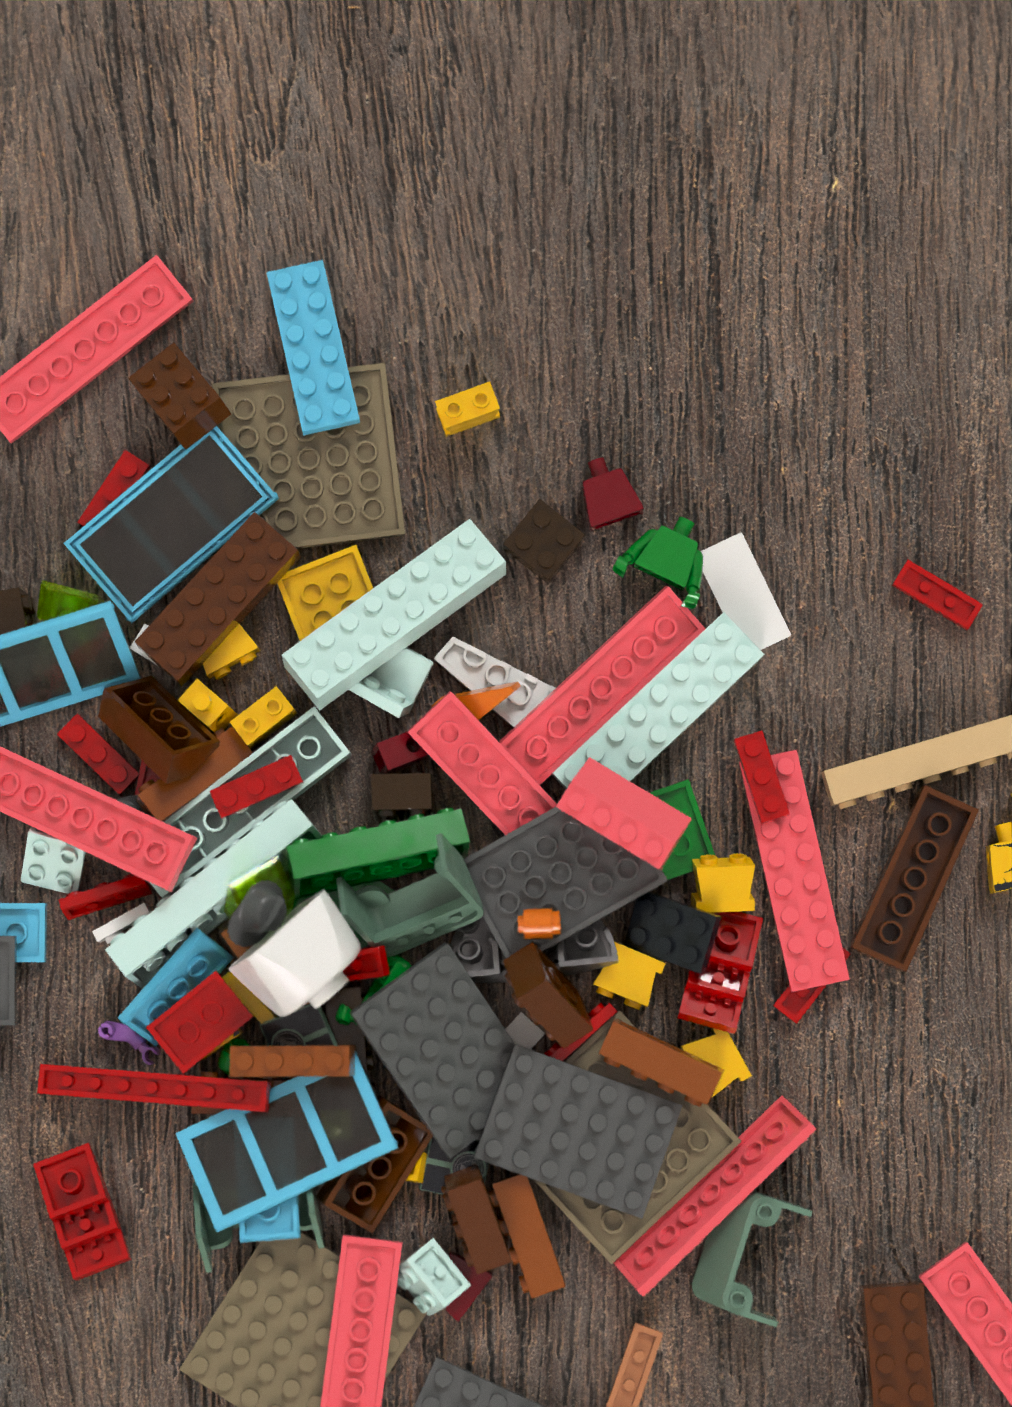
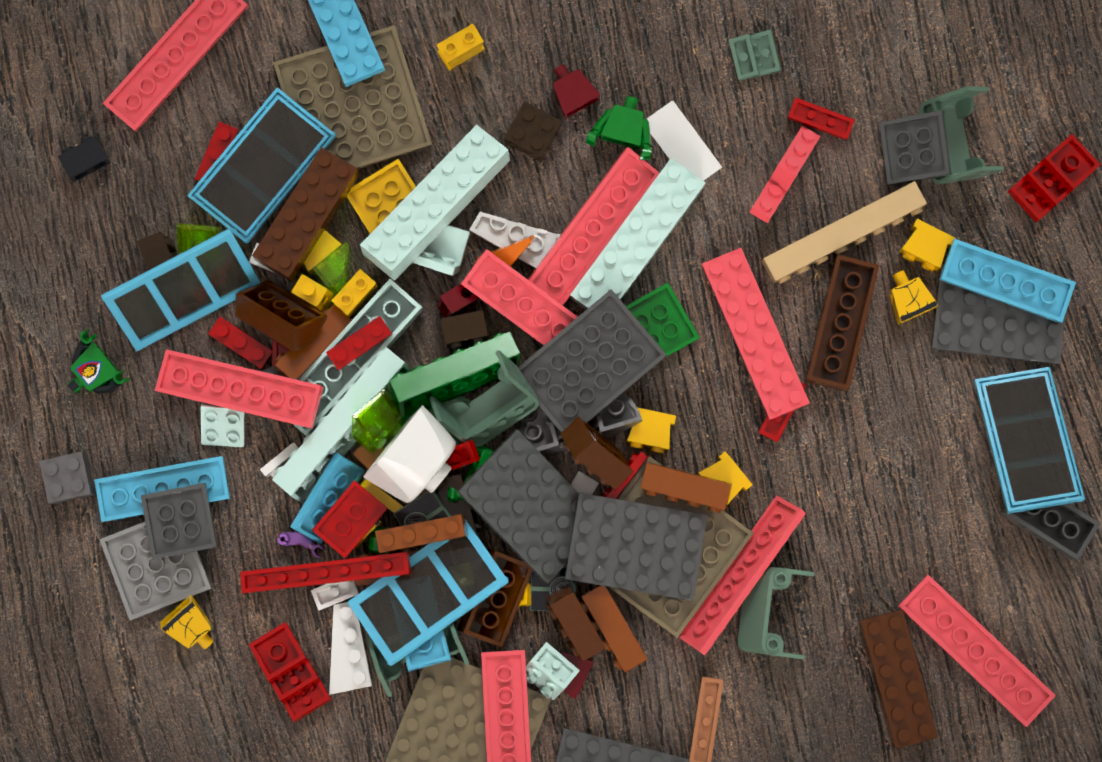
camera: 15 degrees left, 0 degrees up
(104, 896) = (264, 442): red plate -> none
(158, 1117) = (333, 593): none -> white plate
(164, 1205) = (348, 653): none -> white wing
(179, 396) = (251, 74): reddish brown brick -> none
(244, 679) = (336, 268): none -> clear neon green slope
(257, 914) = (377, 433): dark grey piece -> none
(539, 923) = (581, 402): orange brick -> none
(624, 813) = (627, 312): coral slope -> none
(672, 931) = (677, 392): black plate -> none
(718, 994) = (715, 412): red slope -> none
(723, 883) = (706, 351): yellow hips -> none
(761, 777) = (719, 270): red plate -> none
(864, 491) = (755, 55): none -> sand green slope
(874, 662) = (784, 174): none -> coral bracket

